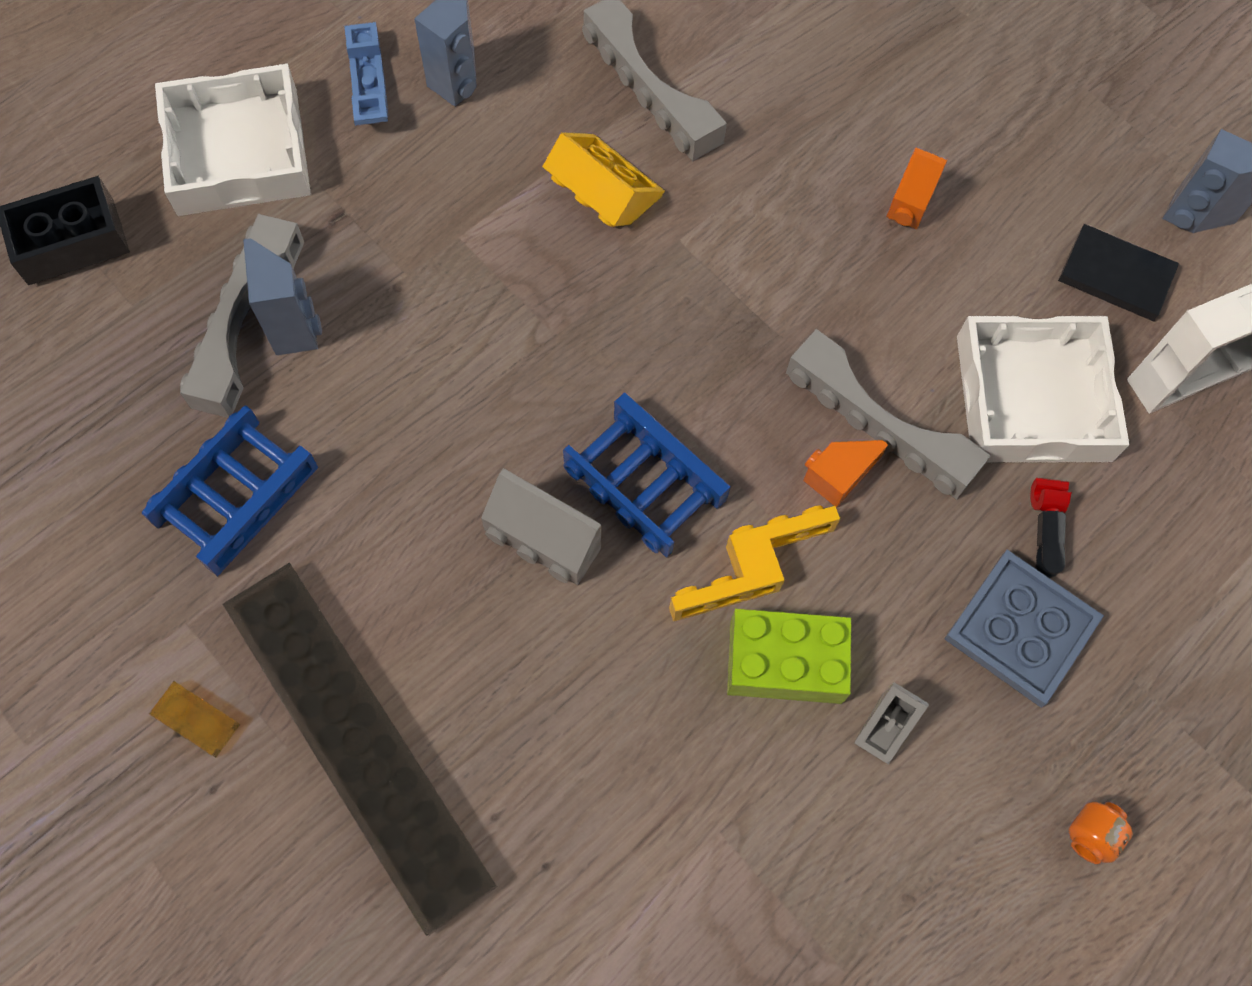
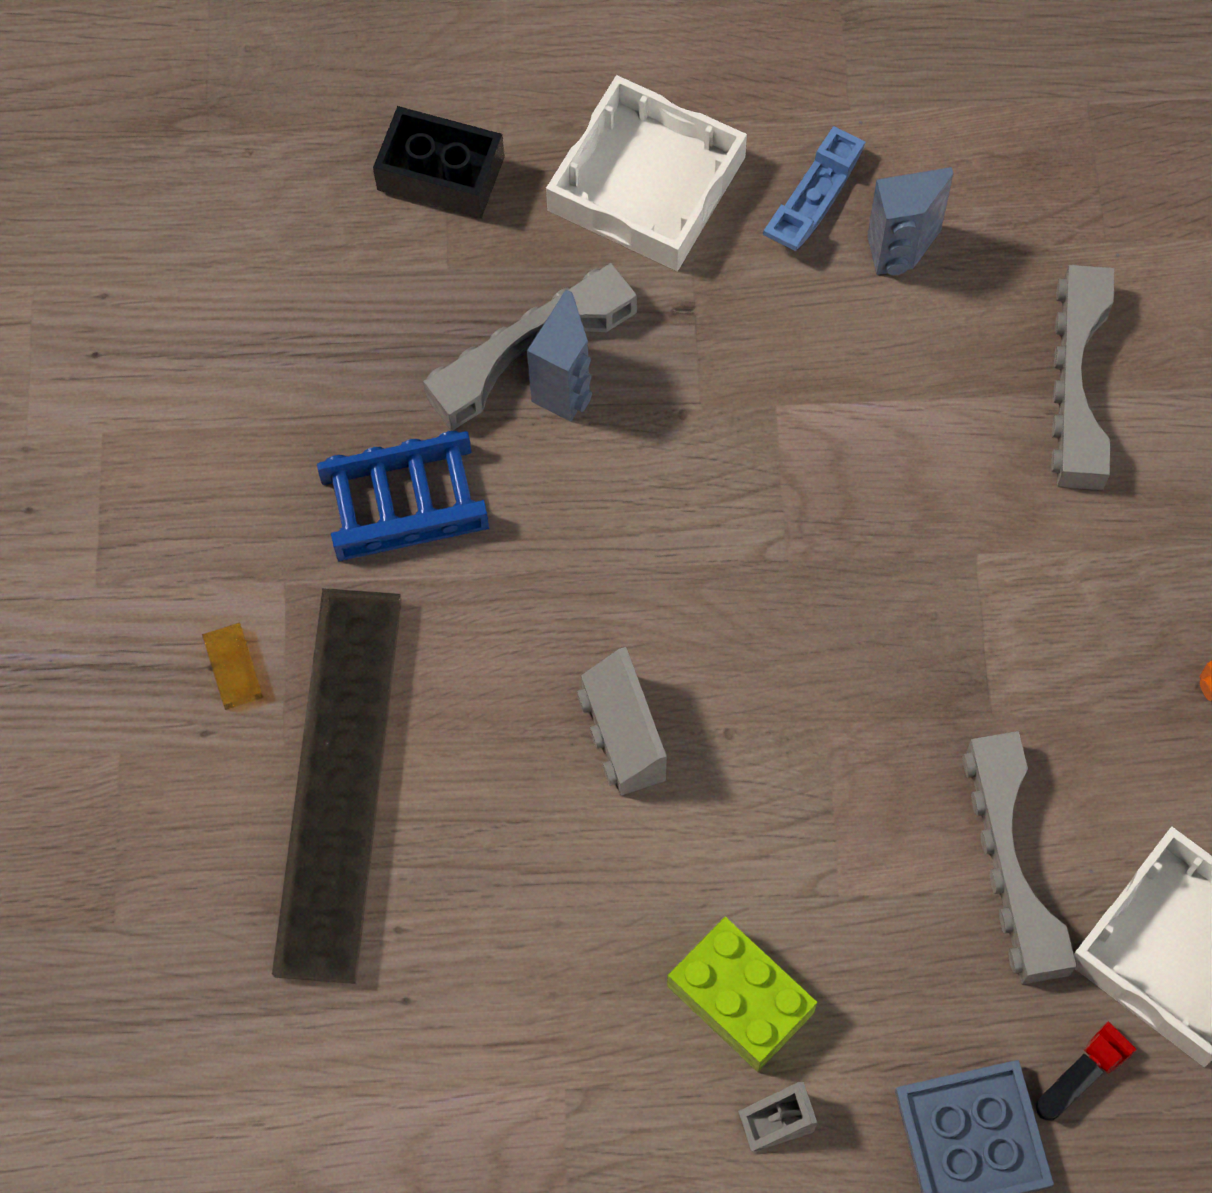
camera: 45 degrees right, 0 degrees up
(601, 178) = (950, 443): yellow slope -> none
(654, 441) = (790, 761): blue fence -> none
(753, 562) = (783, 893): yellow bracket -> none
(842, 467) = (936, 874): orange slope -> none

